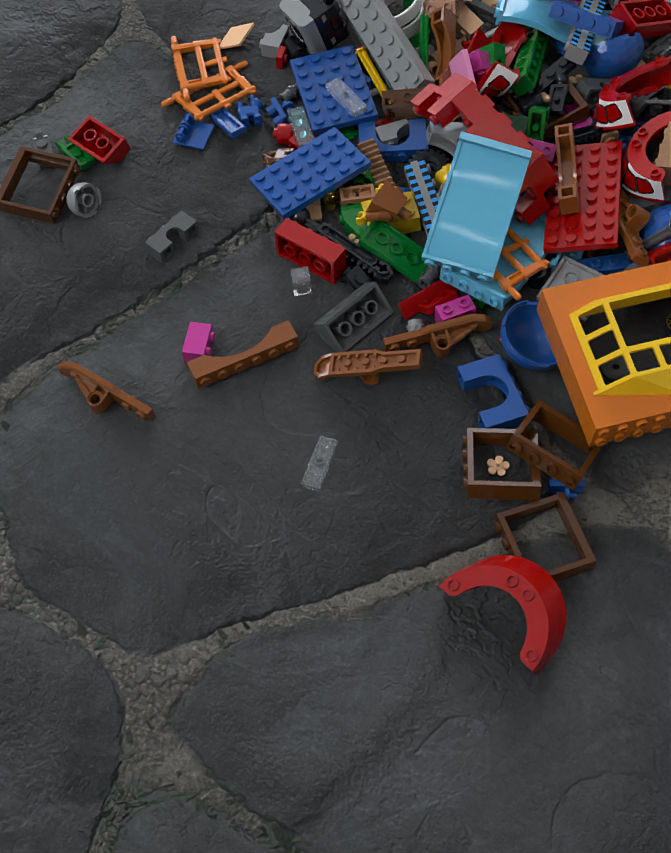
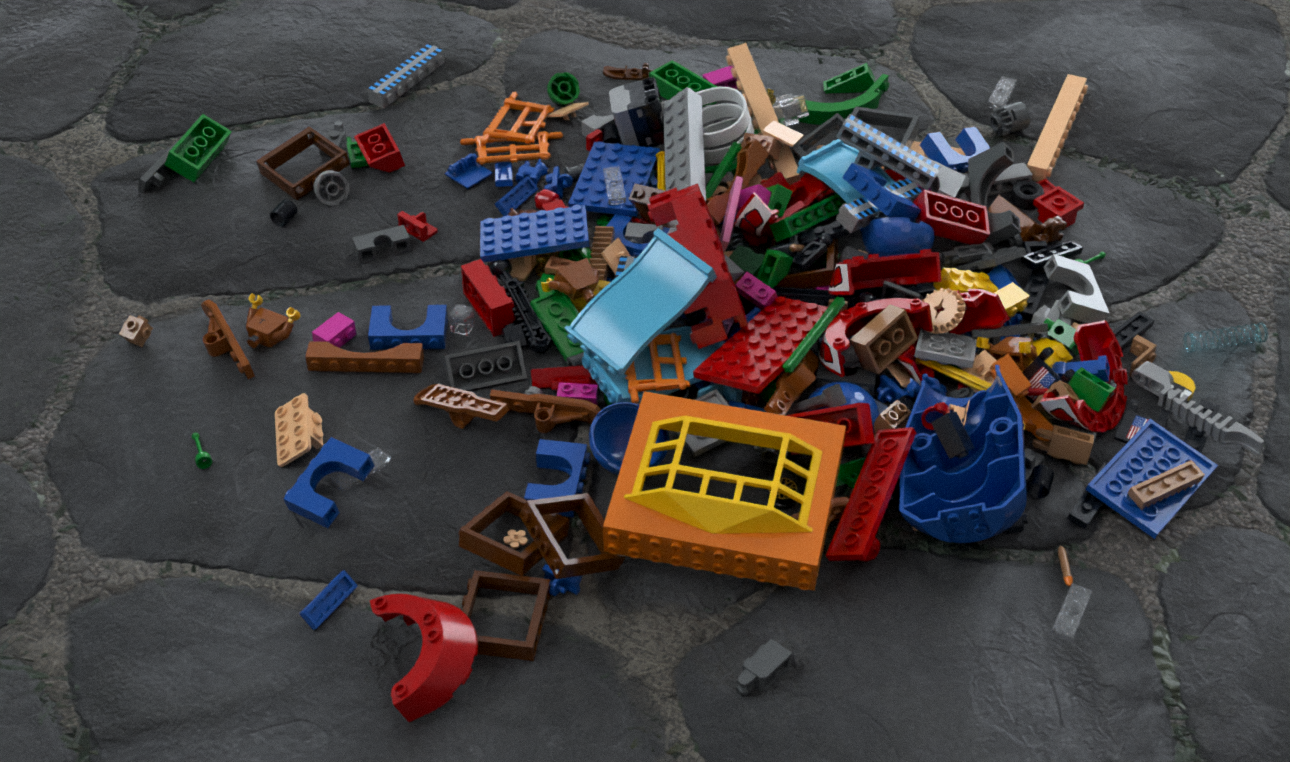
camera: 25 degrees right, 15 degrees down
(15, 420) = (136, 330): none -> medium nougat brick
(57, 242) = (283, 212): none -> black piece
(62, 57) = (406, 75): none -> light grey brick
(133, 363) = (267, 326): none -> dark orange torso
(174, 518) = (202, 455): none -> green hinge
(187, 204) = (417, 225): none -> red panel
(219, 17) = (563, 88): none -> green cylinder
(237, 453) = (296, 430): none -> light nougat bracket
(245, 326) = (385, 336): none -> blue arch
(255, 140) = (516, 196): none -> blue plate
(300, 126) = (560, 194): clear light blue tile -> none
(300, 464) = (332, 458): none -> blue arch
(391, 599) = (328, 600): none -> blue plate
(394, 166) = (613, 253): none -> light nougat piece
(567, 169) = (782, 291): dark orange arch -> none
(622, 173) = (813, 335): none -> green axle

